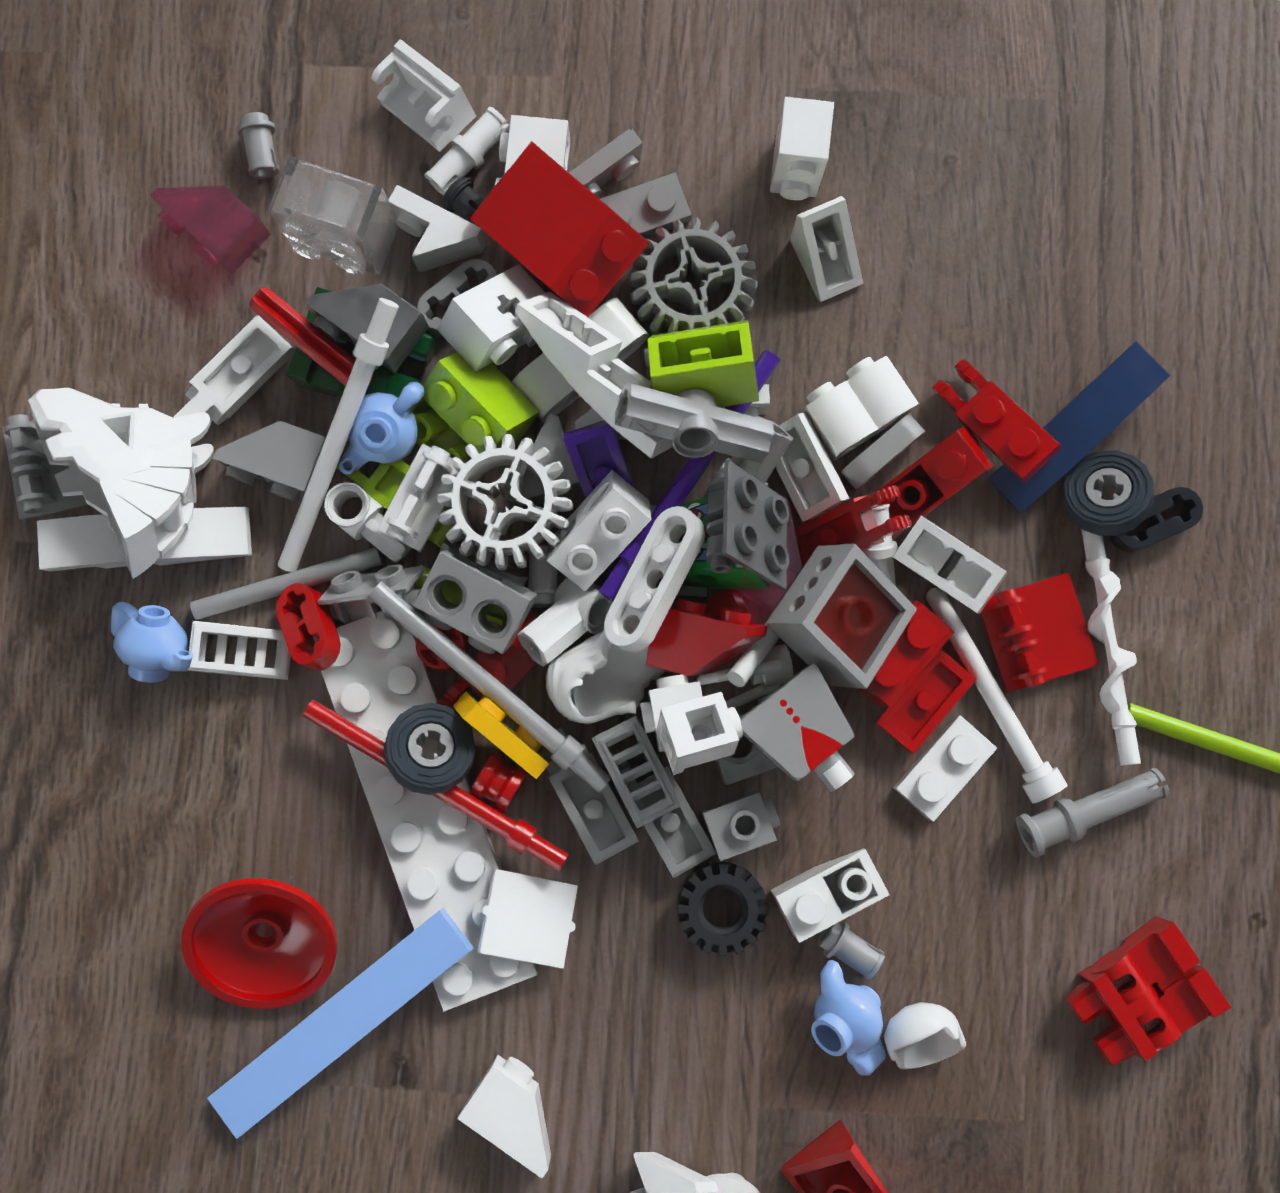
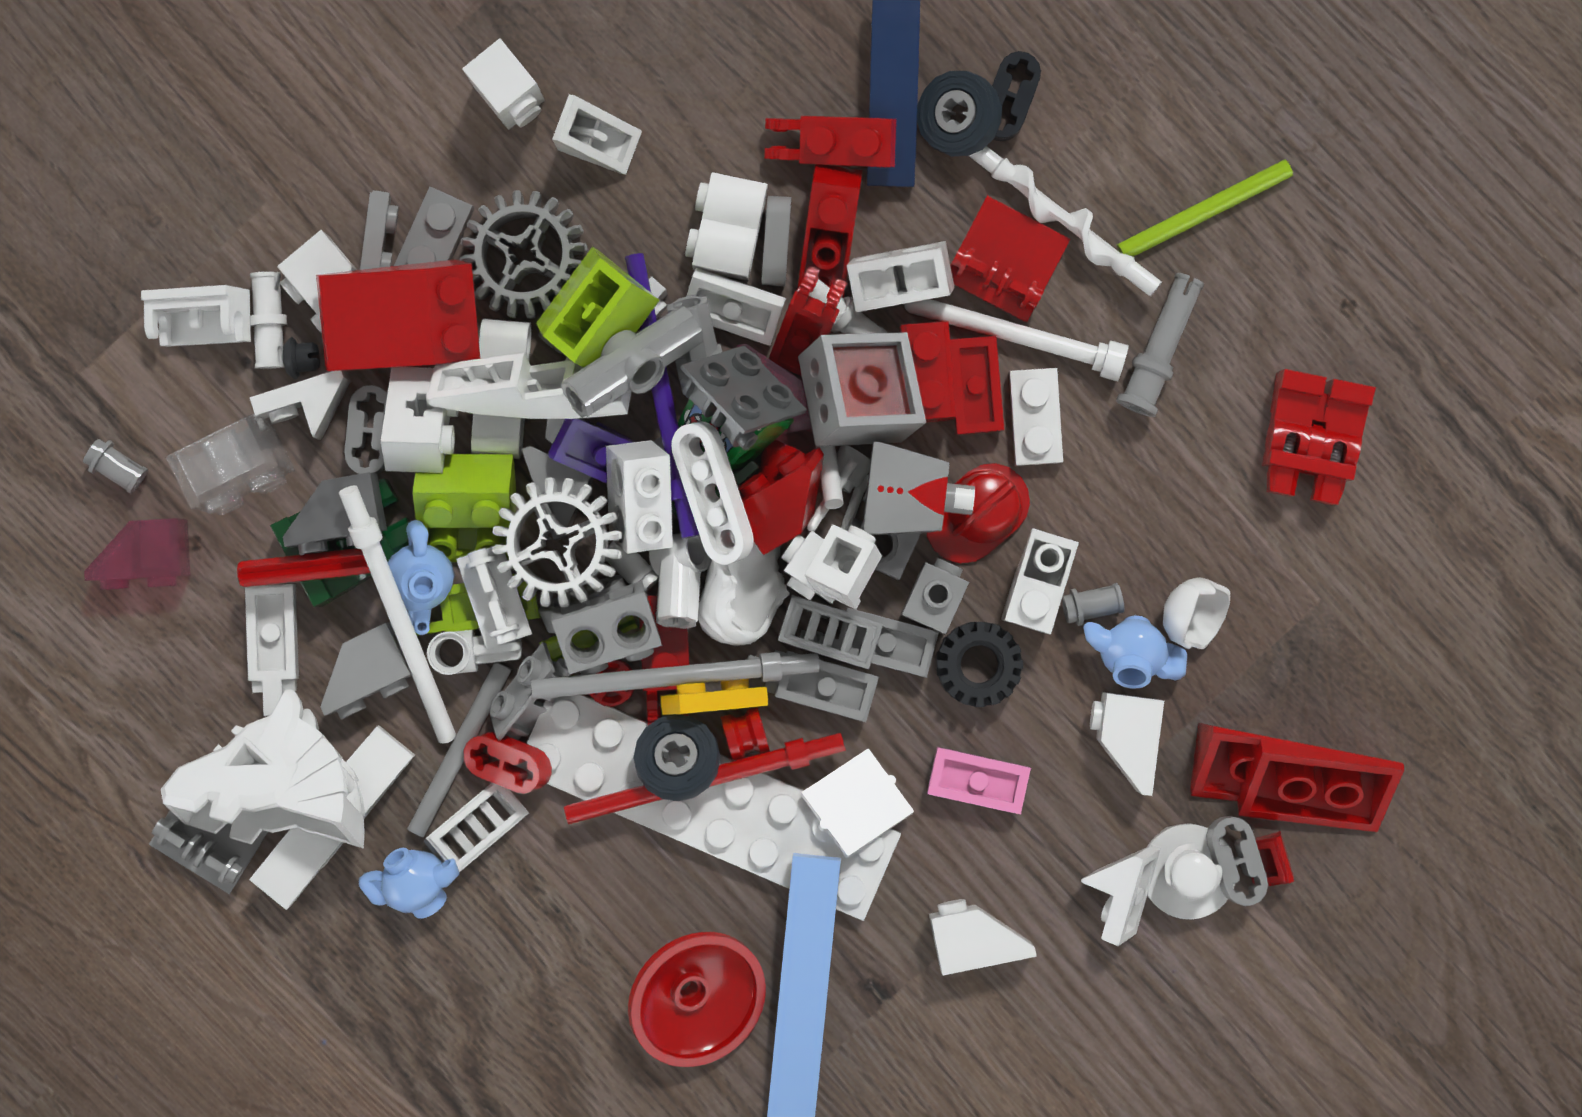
camera: 45 degrees left, 5 degrees up
(634, 995) = (978, 780): none -> bright pink plate
(781, 1080) = (1130, 735): none -> white slope
(847, 811) = (998, 511): none -> red piece

